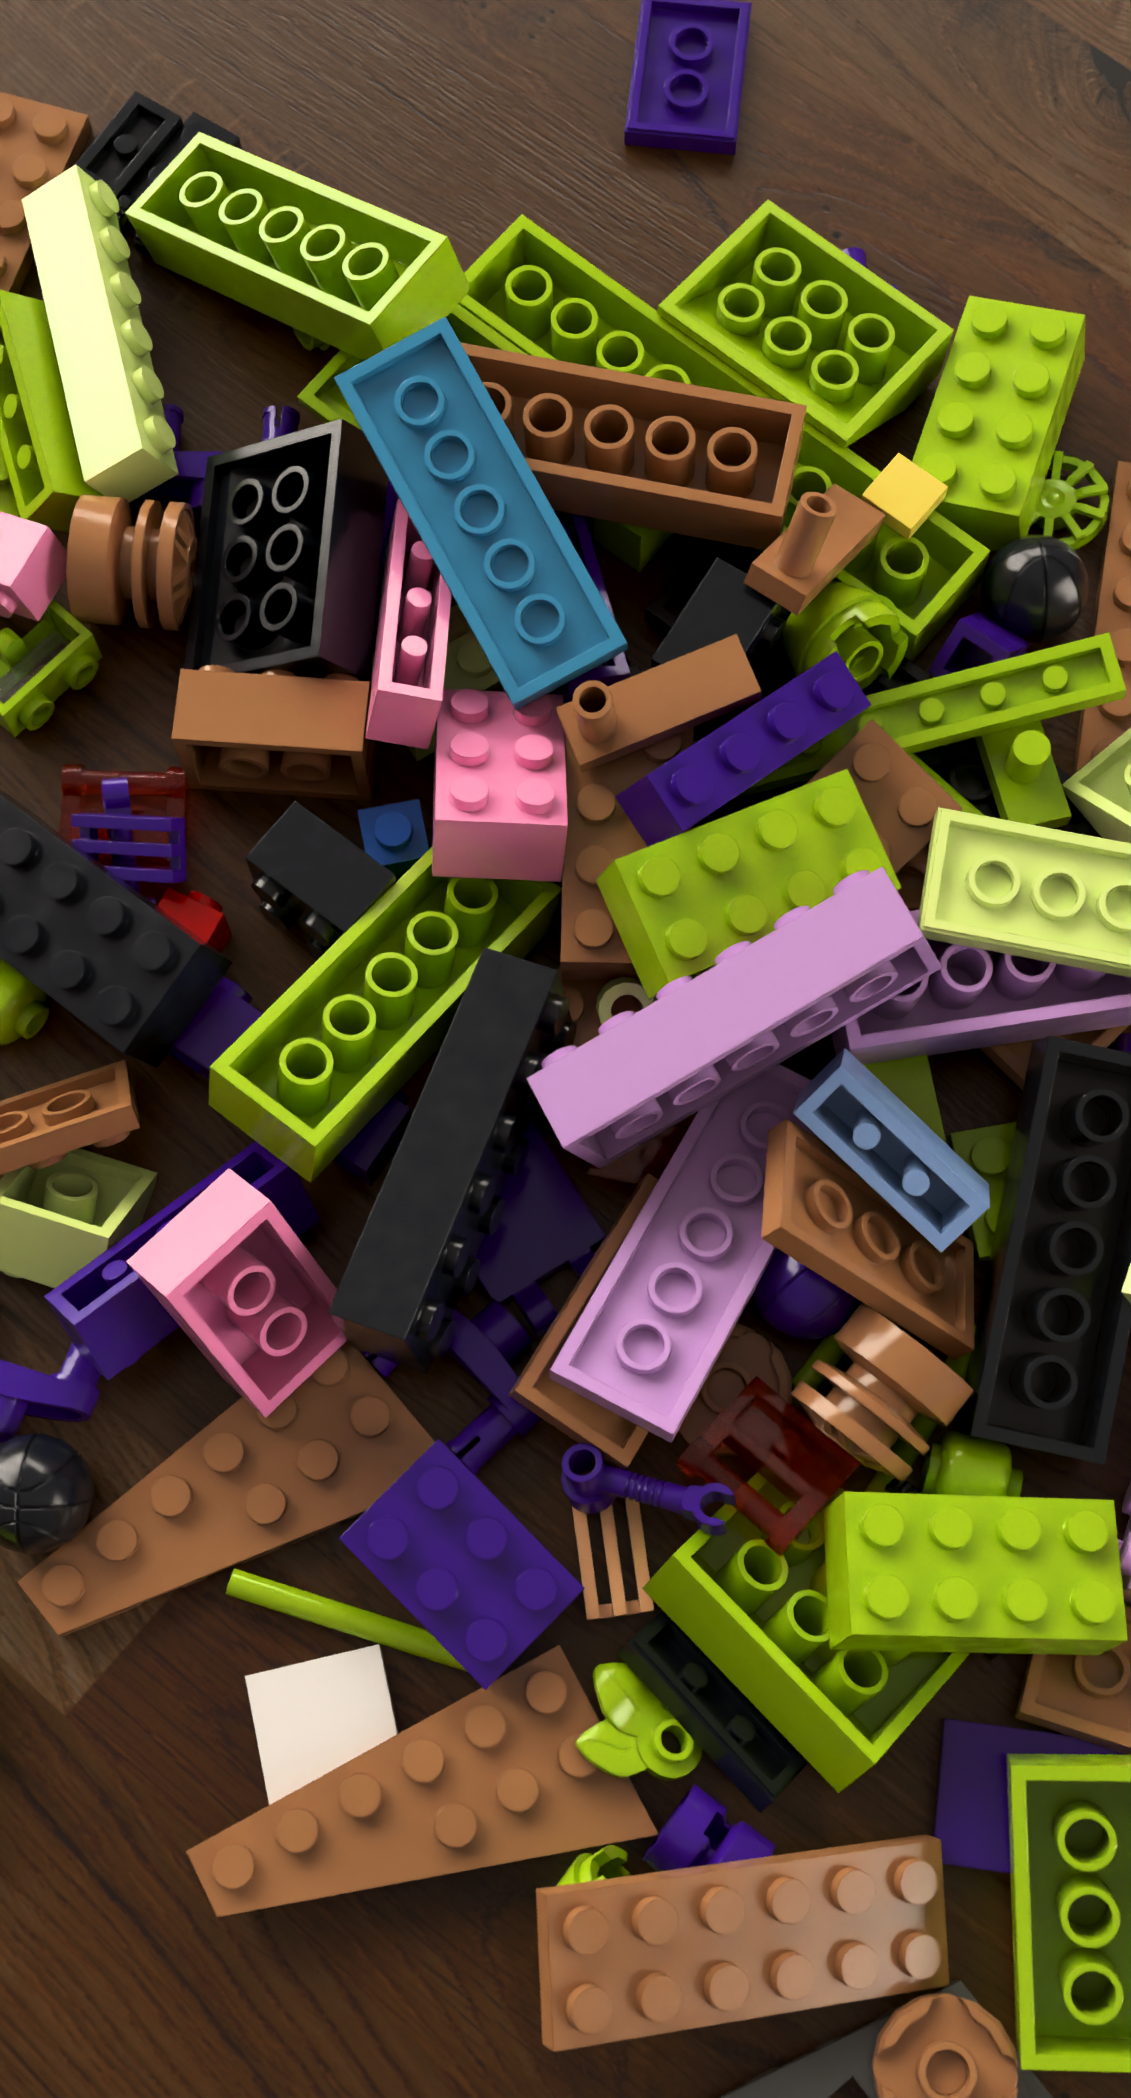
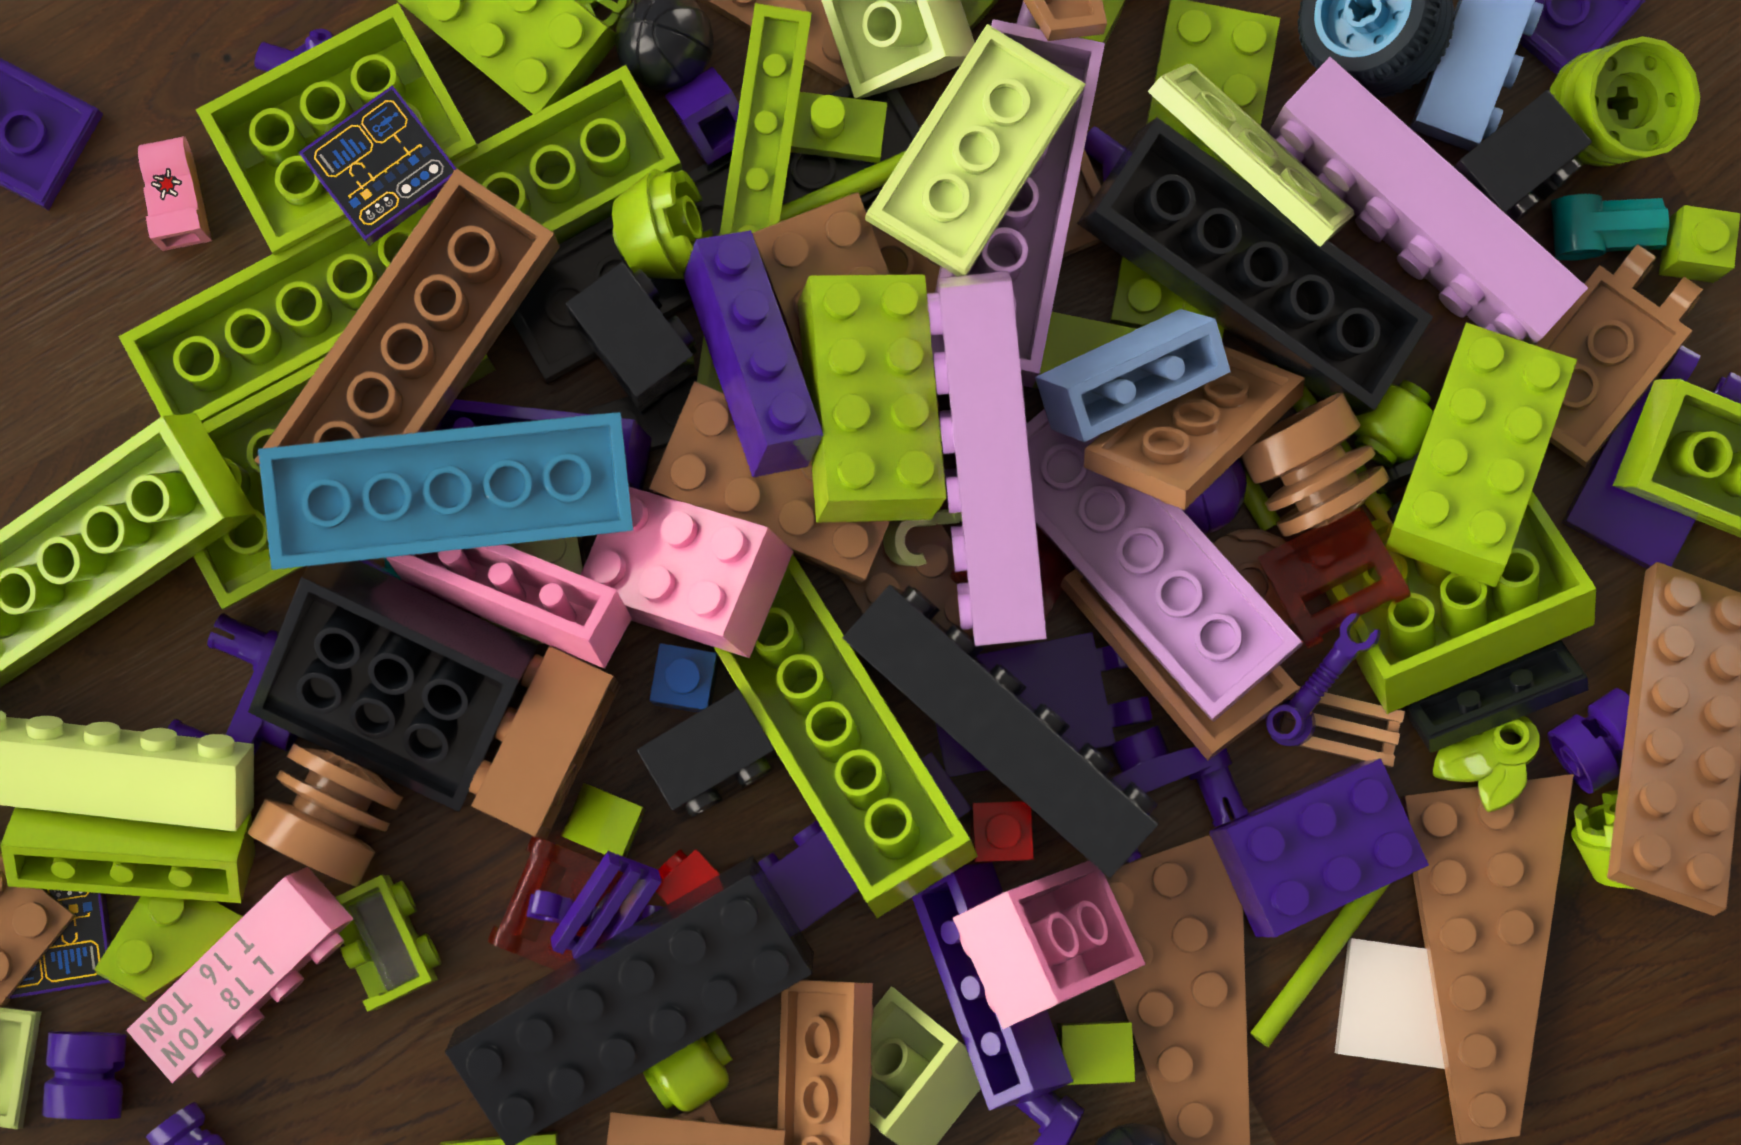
camera: 75 degrees left, 10 degrees up
(154, 1404) = (1098, 1051): none -> lime brick
(222, 831) = (603, 821): none -> lime brick
(345, 1210) = (1001, 831): none -> red brick
(657, 703) = (682, 407): medium nougat piece -> none
(682, 230) = (173, 195): none -> bright pink leg
(785, 356) = (379, 165): none -> black tile
(814, 548) = (583, 215): medium nougat piece -> none
(905, 495) = (549, 117): light yellow tile -> none

